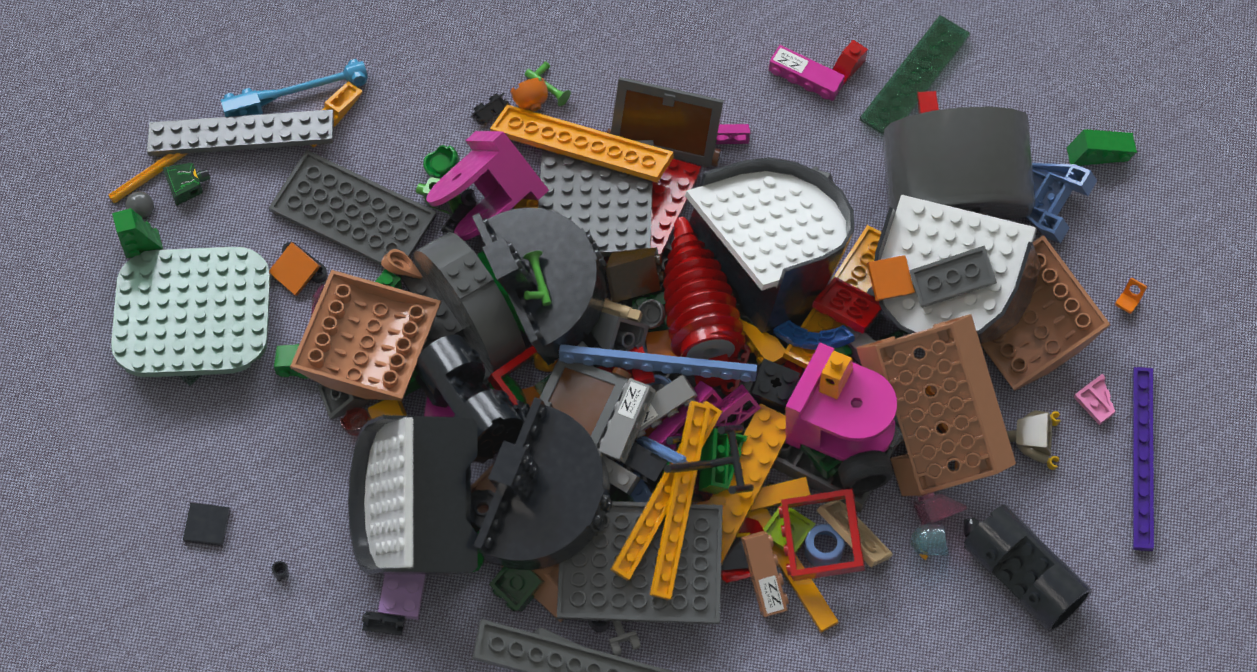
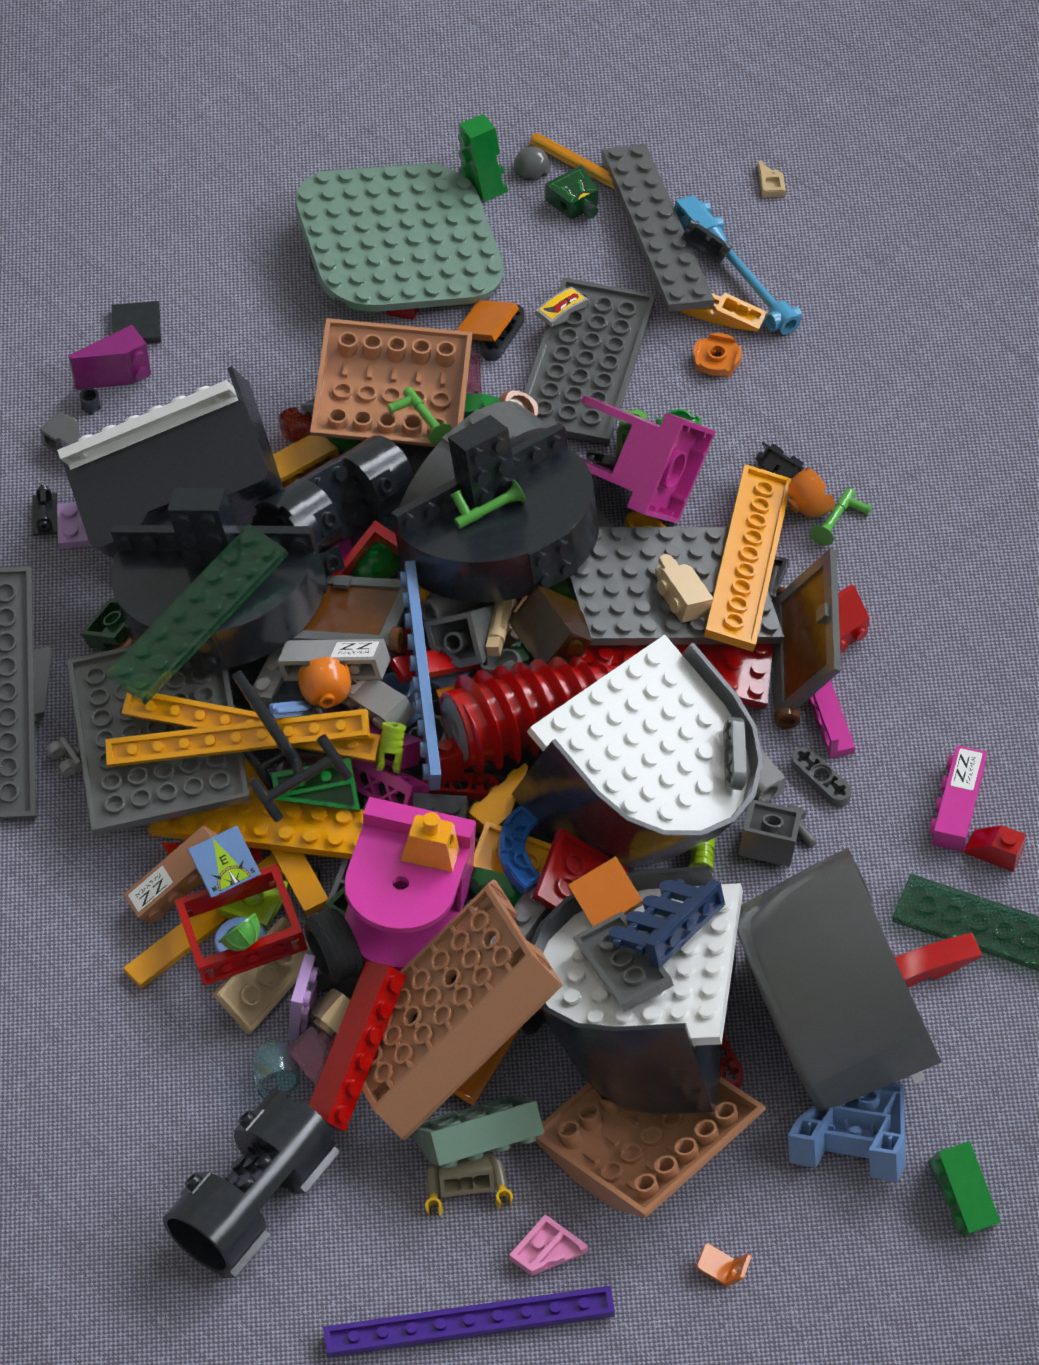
camera: 80 degrees right, 10 degrees down
(214, 49) = (771, 181): none -> tan tile
(252, 535) = (111, 361): none -> magenta slope
(273, 101) = (706, 241): none -> black hinge
(302, 213) = (558, 307): none -> slope
(314, 594) = (60, 427): none -> dark grey slope
(379, 133) = (717, 366): none -> orange plate
(393, 320) = (411, 398): none -> bright green piece
(584, 495) = (196, 614): none -> clear green plate
(614, 185) = (682, 589): none -> tan hinge
(654, 428) = (325, 682): none -> orange cylinder
(711, 394) = (391, 743): none -> lime hinge
(770, 144) = (822, 787): none -> dark grey beam
(779, 531) = (224, 861): none -> medium blue tile
(795, 172) = (734, 753): none -> dark grey beam
(846, 527) = (242, 935): none -> bright green piece
(888, 507) = (303, 997): none -> lavender plate
(905, 488) = (330, 1011): none -> tan hinge
(936, 246) = (681, 922): none -> dark blue fence
(947, 473) = (356, 1043): none -> red brick
(1020, 413) = (478, 1130): none -> sand green slope

